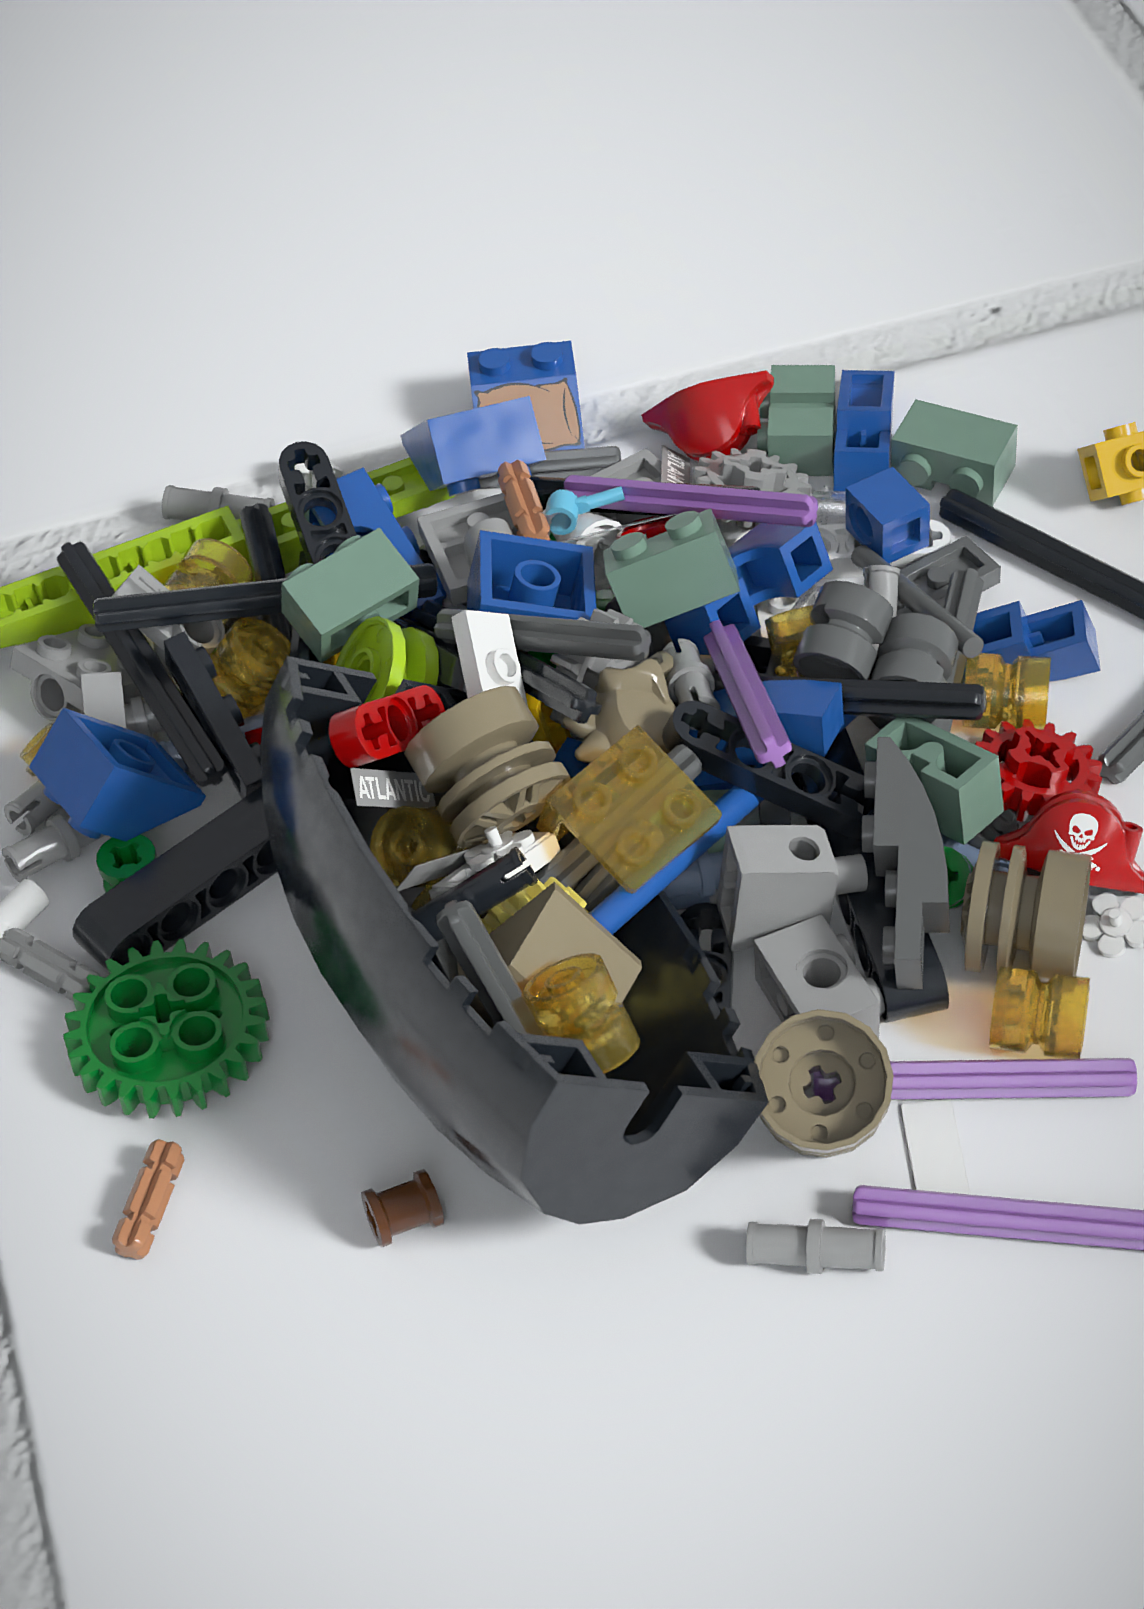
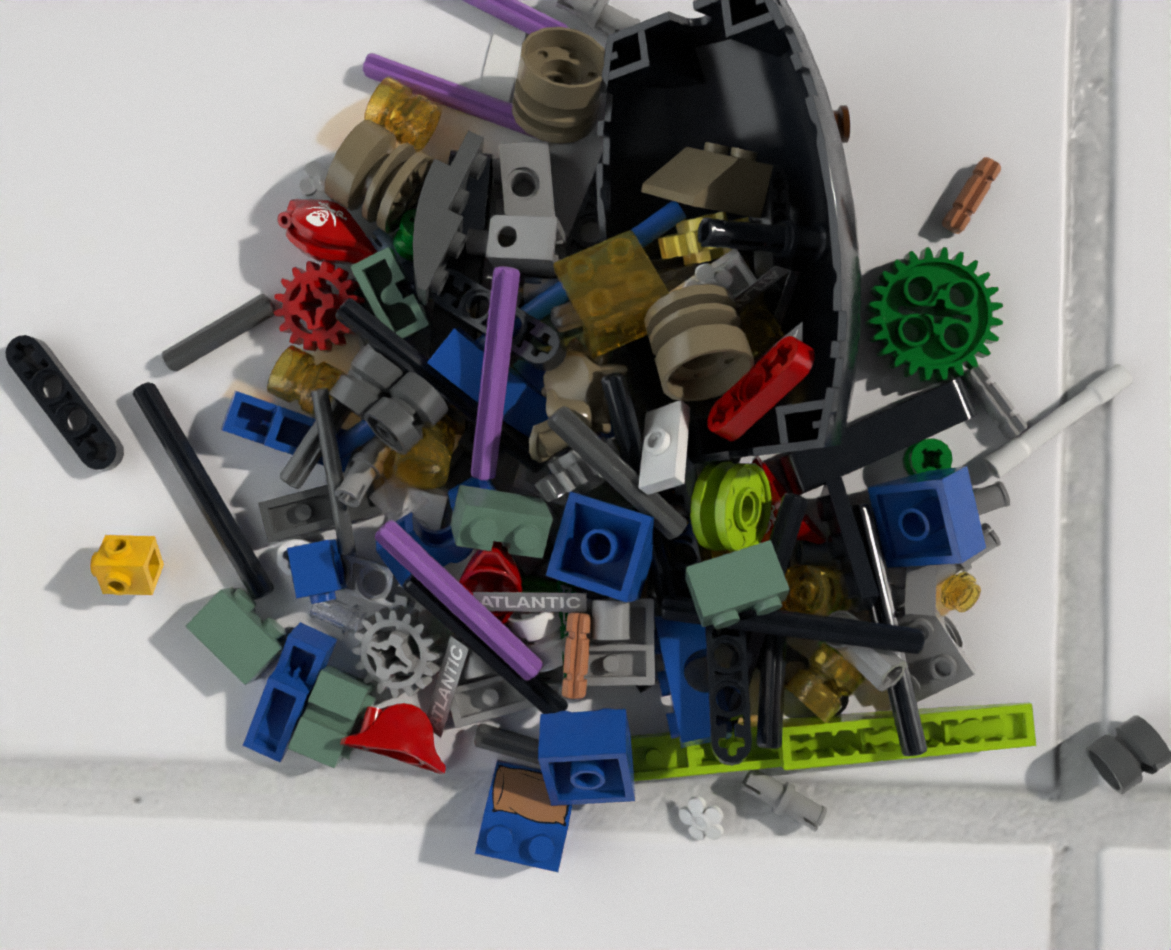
camera: 165 degrees left, 40 degrees up
(485, 967) = (751, 136): dark grey axle -> none
(570, 506) = (549, 637): medium azure hand -> none
(579, 1002) = (703, 120): clear yellow wheel -> none
(689, 676) = (523, 417): light grey pin -> none

